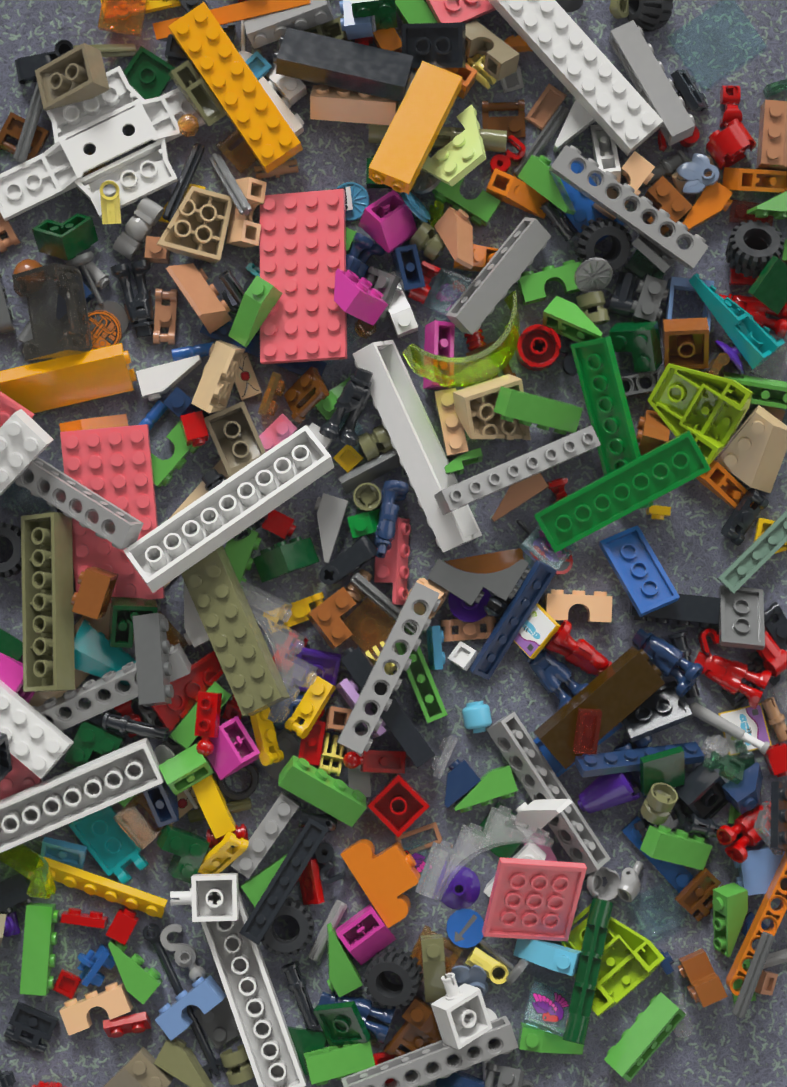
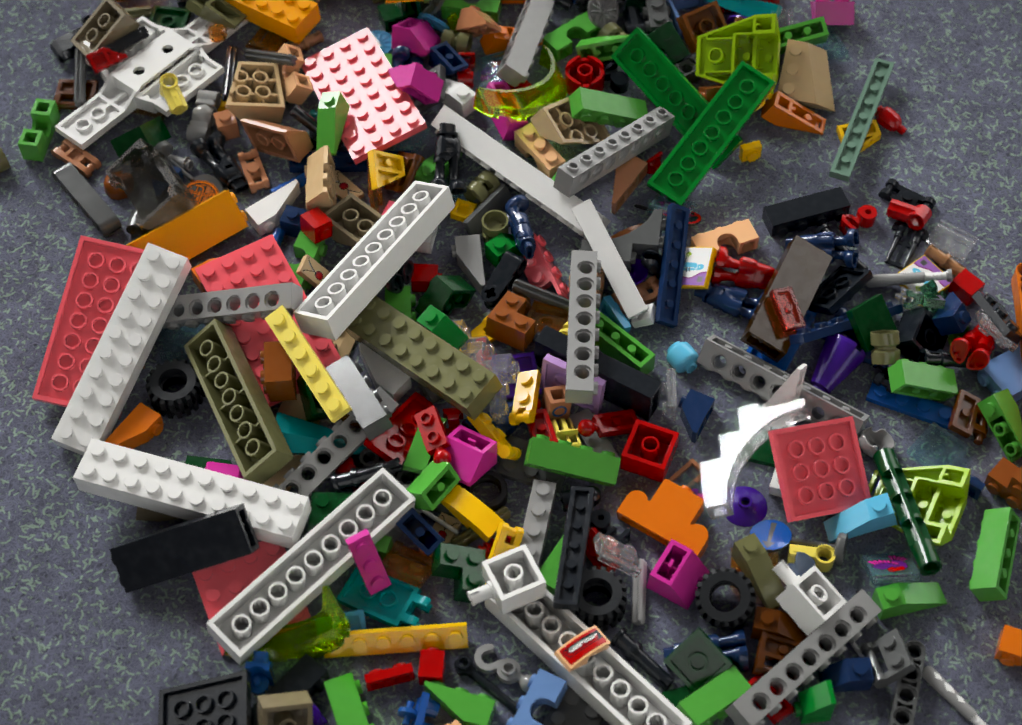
camera: 20 degrees left, 30 degrees down
(58, 121) = (104, 59): none -> red tile
(83, 104) = (128, 40): none -> black axle
(100, 823) = (368, 562): none -> dark pink plate
(115, 613) = (308, 364): none -> light yellow plate
(176, 480) = (311, 271): none -> tan tile
(245, 983) = (582, 647): none -> slope
(260, 611) = (442, 326): none -> green slope
(282, 396) = (384, 168): none -> yellow wing
(320, 898) = (617, 554): none -> clear plate
(341, 969) = (667, 611): bright green slope -> none
(364, 329) = (429, 115): clear orange tile -> none
(452, 595) = (610, 259): none -> white tile
(492, 785) = (725, 407): bright green slope -> none
(630, 883) = (900, 431): light grey piece -> none
(639, 571) = (760, 192): blue plate -> none
(730, 675) = (886, 240): red piece -> none
(741, 618) = (869, 194): plate -> none
(744, 516) = (823, 130): black plate -> none

